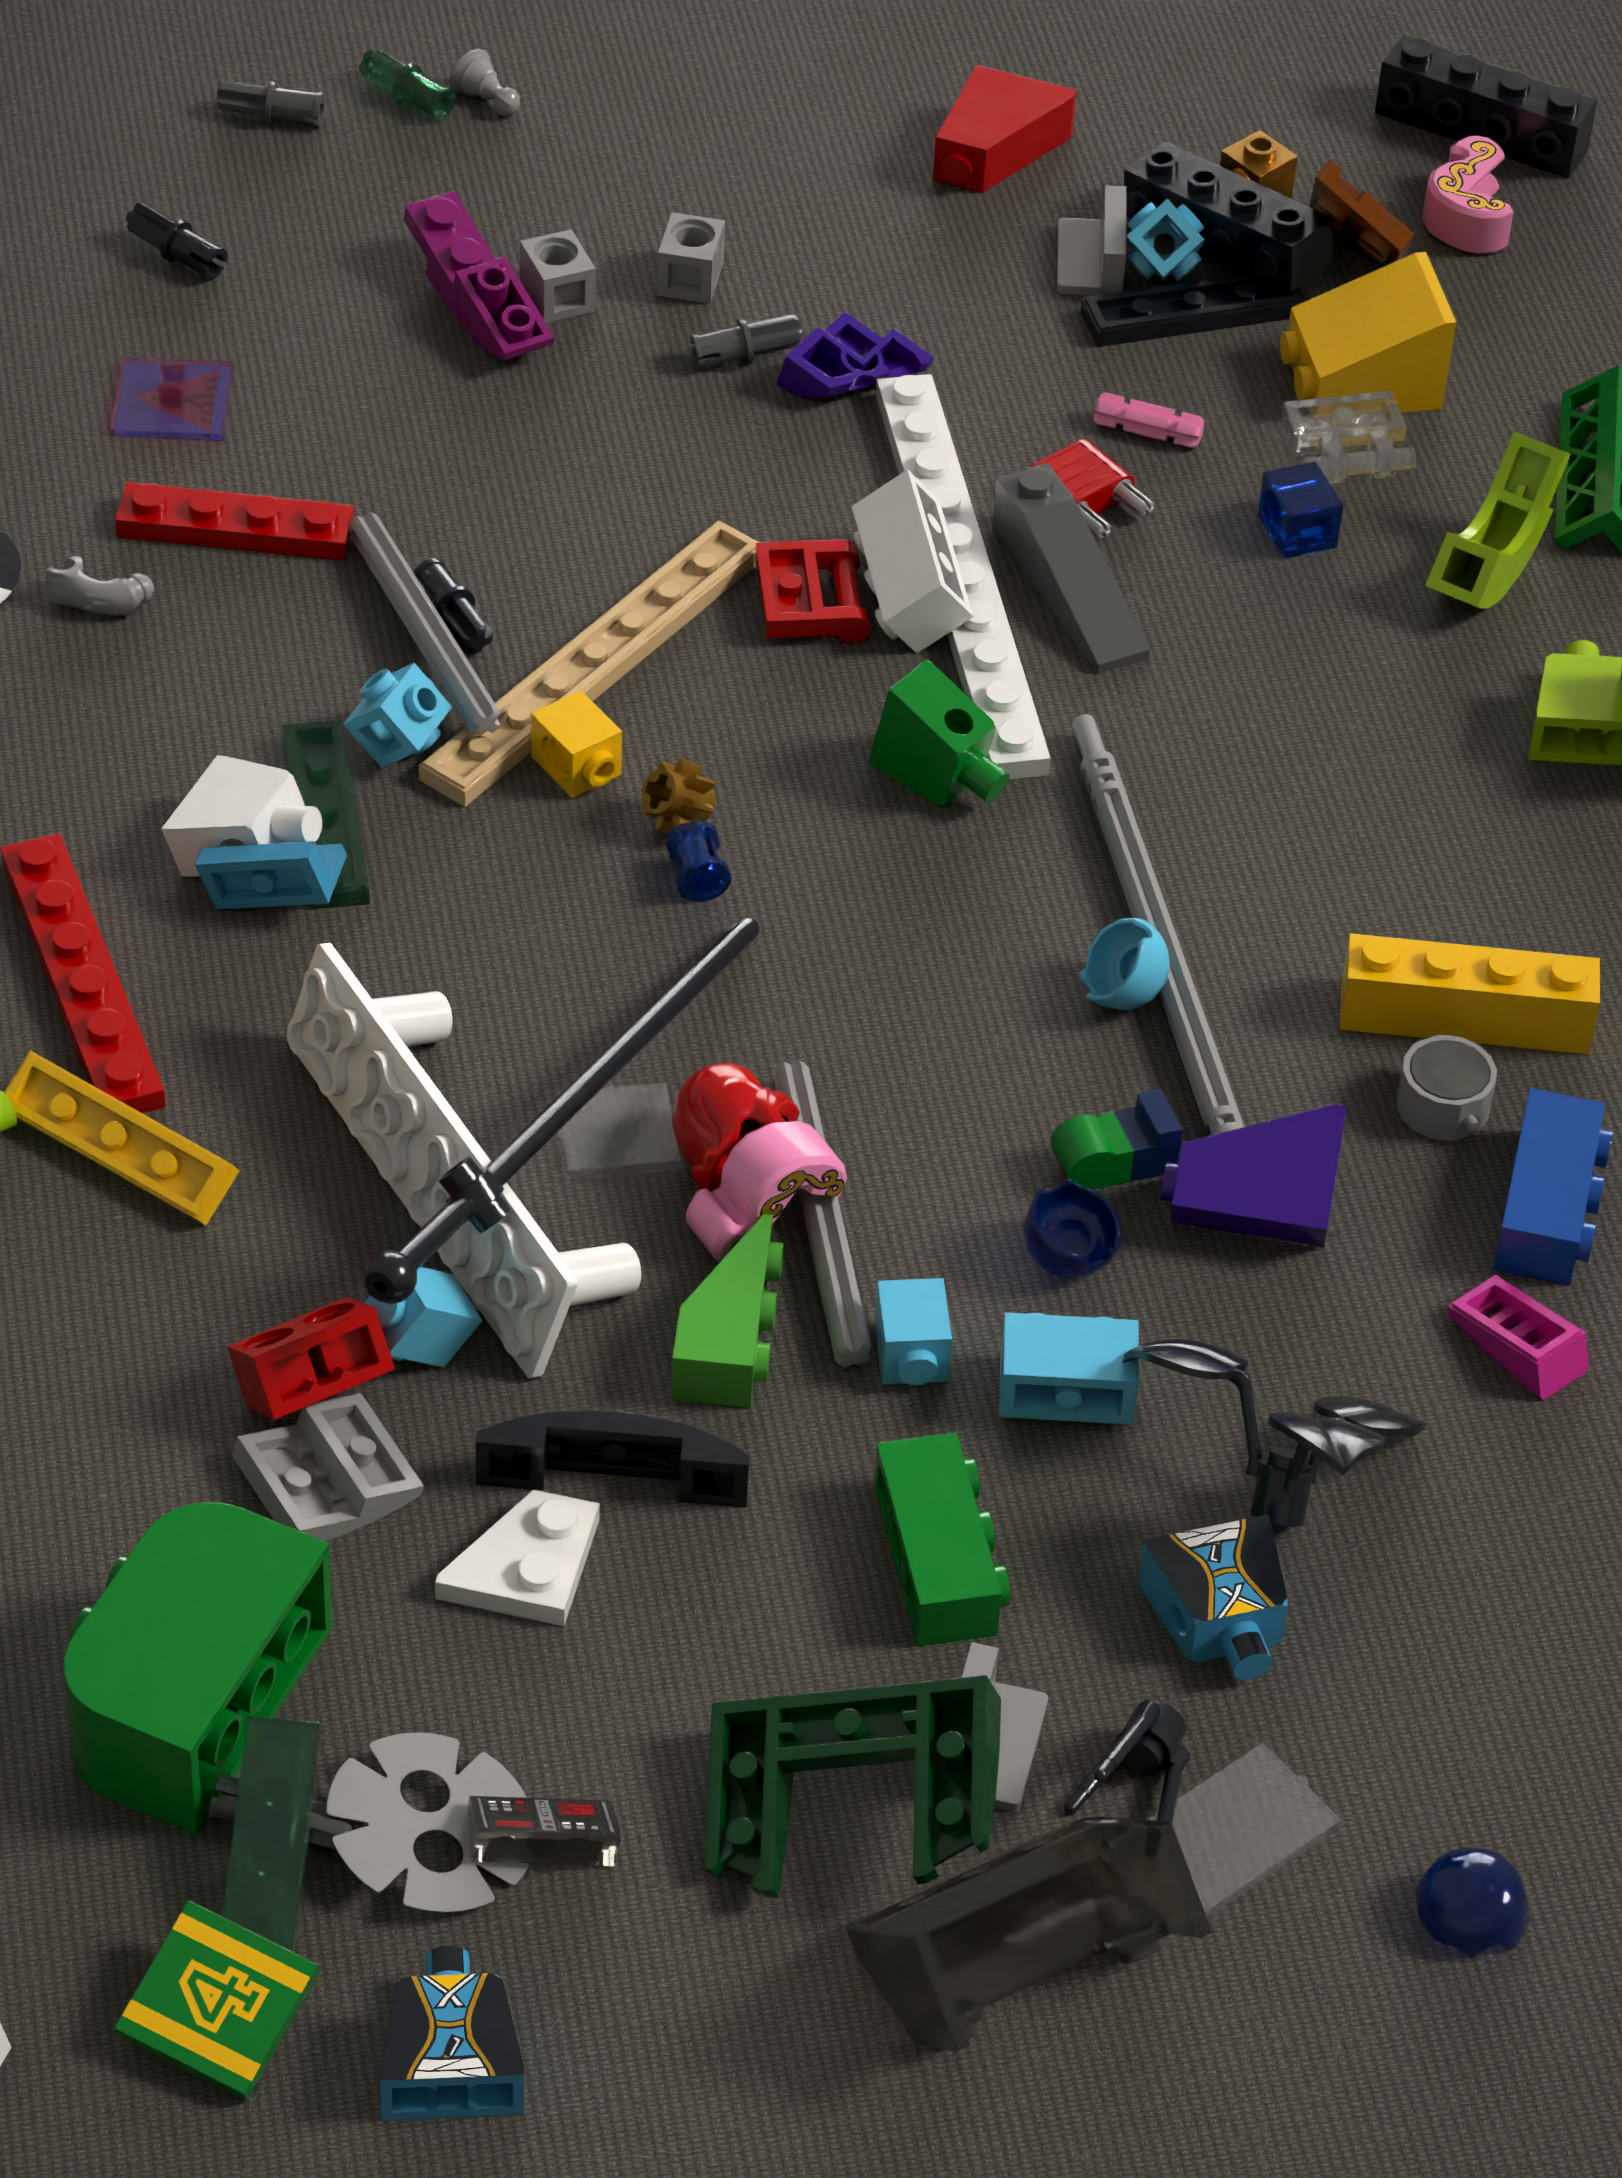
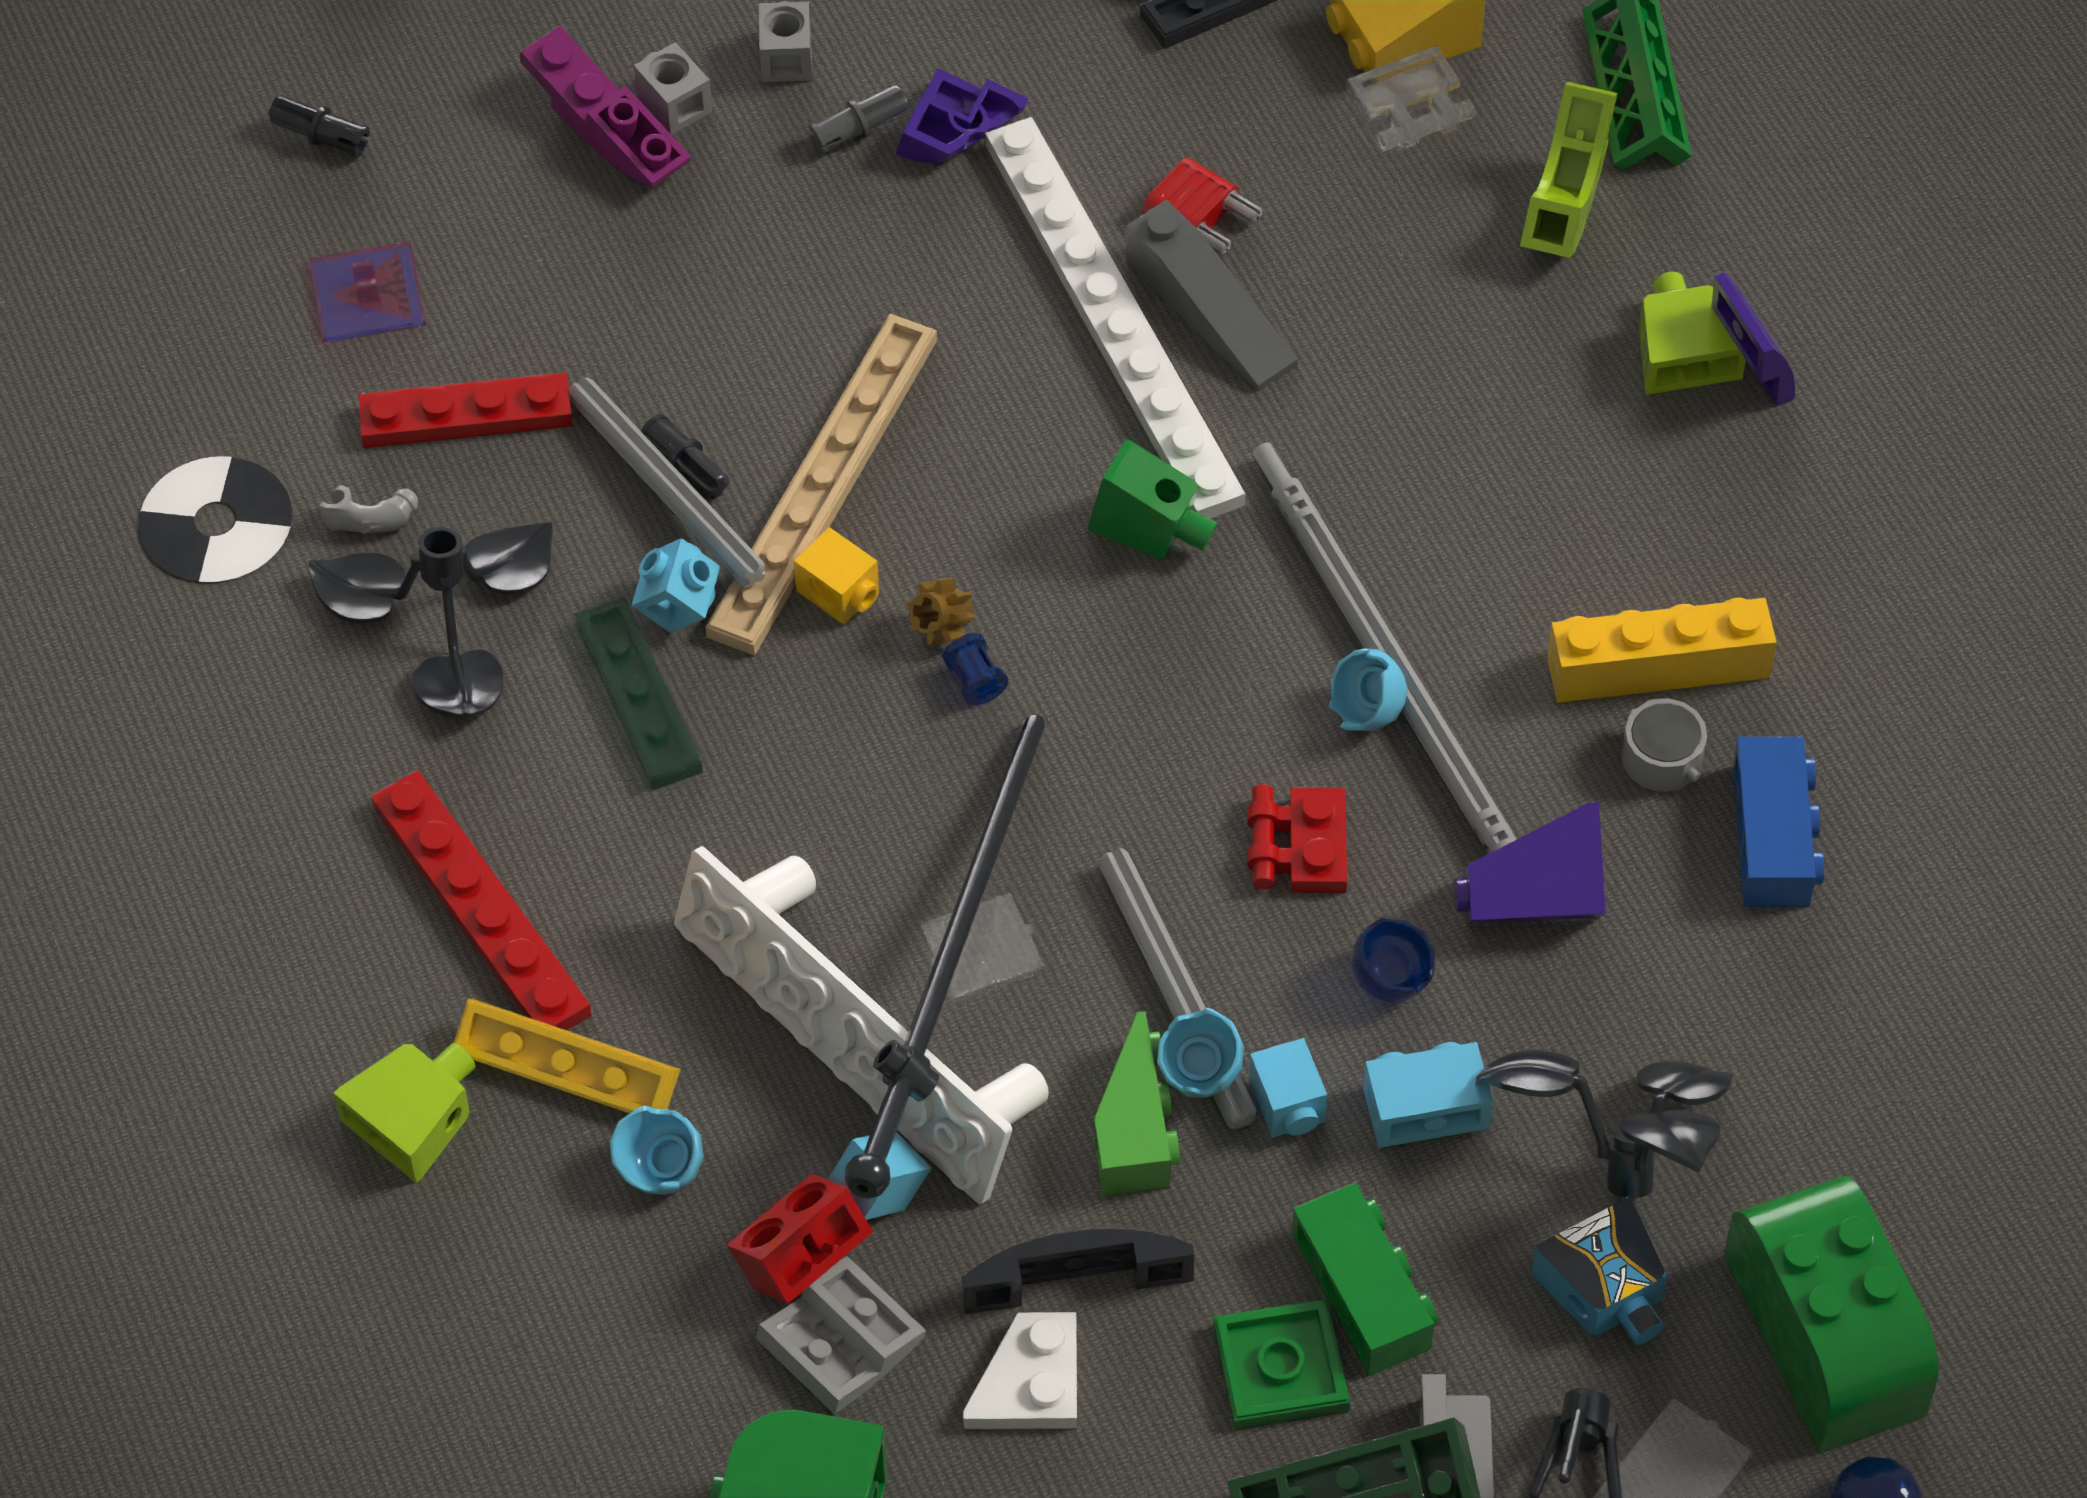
camera: 10 degrees left, 10 degrees up
(72, 656) = (364, 586): none -> black plant
(183, 1240) = (656, 1150): none -> medium azure hair
(239, 806) = (573, 724): white torso -> none
(270, 874) = (617, 769): dark azure panel -> none
(717, 1111) = (1083, 931): red hair -> none
(761, 1180) = (1127, 983): bright pink animal -> none
(793, 591) = (975, 371): red plate -> none
(817, 1610) = (1280, 1364): none -> green tile
(821, 1267) = (1200, 1053): none -> medium azure hair
(910, 562) = (1072, 324): white brick -> none
(1025, 1100) = (1316, 839): none -> red plate
(1120, 1143) = (1408, 865): leg -> none
(1149, 420) = (1233, 120): bright pink axle -> none
(1300, 509) = (1390, 188): clear blue brick -> none
(1474, 1684) = (1834, 1311): none -> green brick
(1542, 1367) = (1810, 988): dark pink slope -> none

